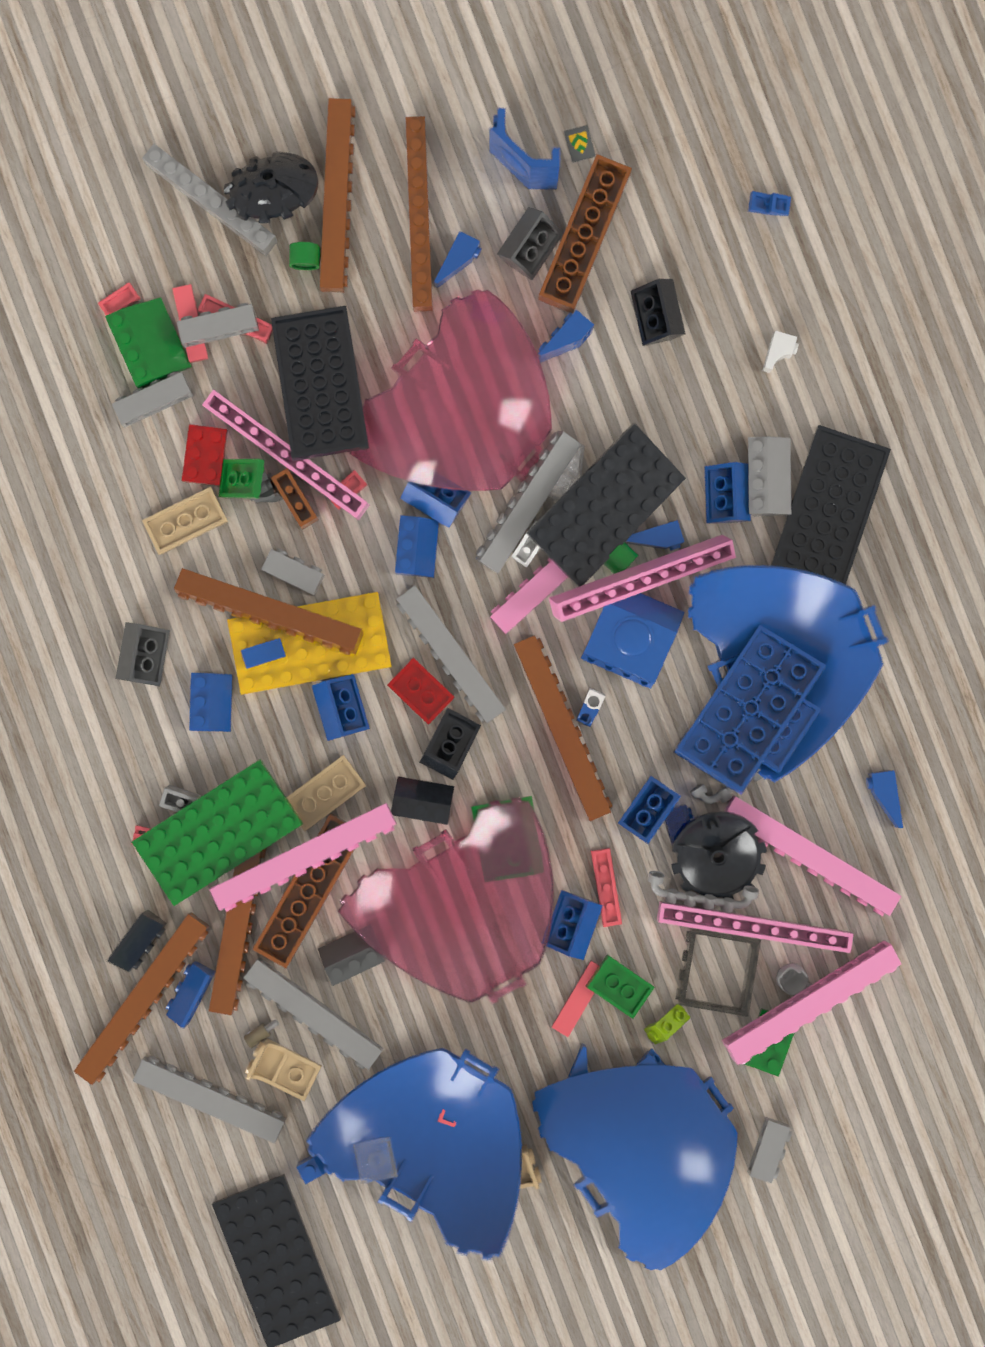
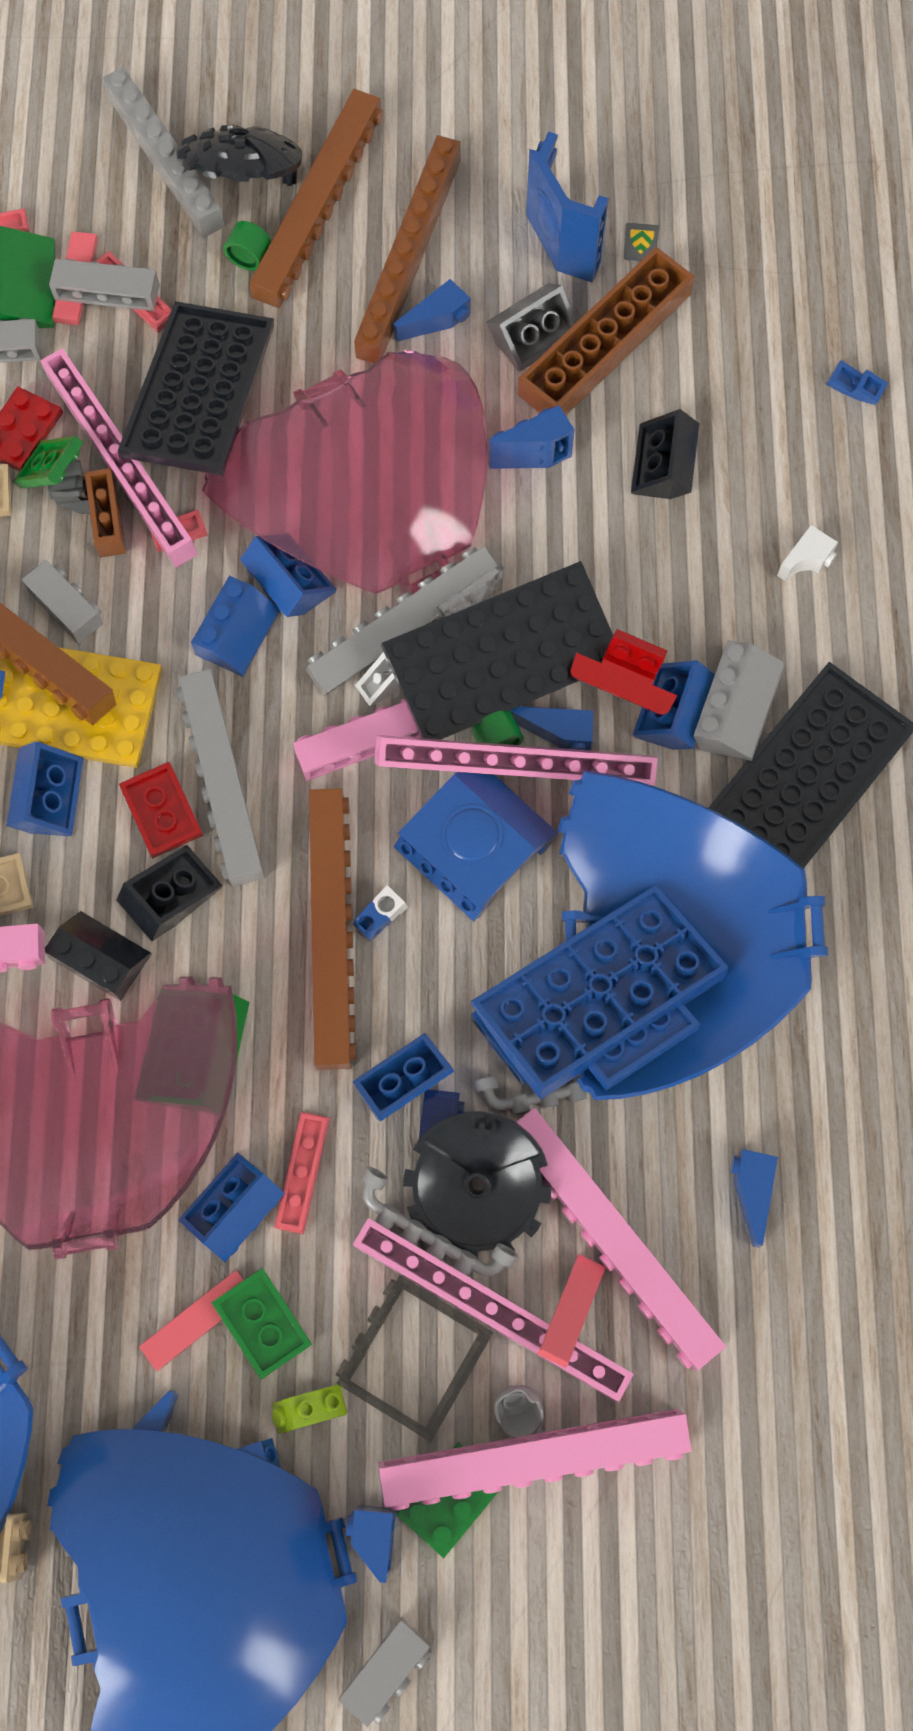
camera: 25 degrees right, 15 degrees down
(692, 489) = (627, 672): none -> red plate
(737, 1082) = (373, 1537): none -> blue slope
(803, 910) = (571, 1311): none -> coral tile

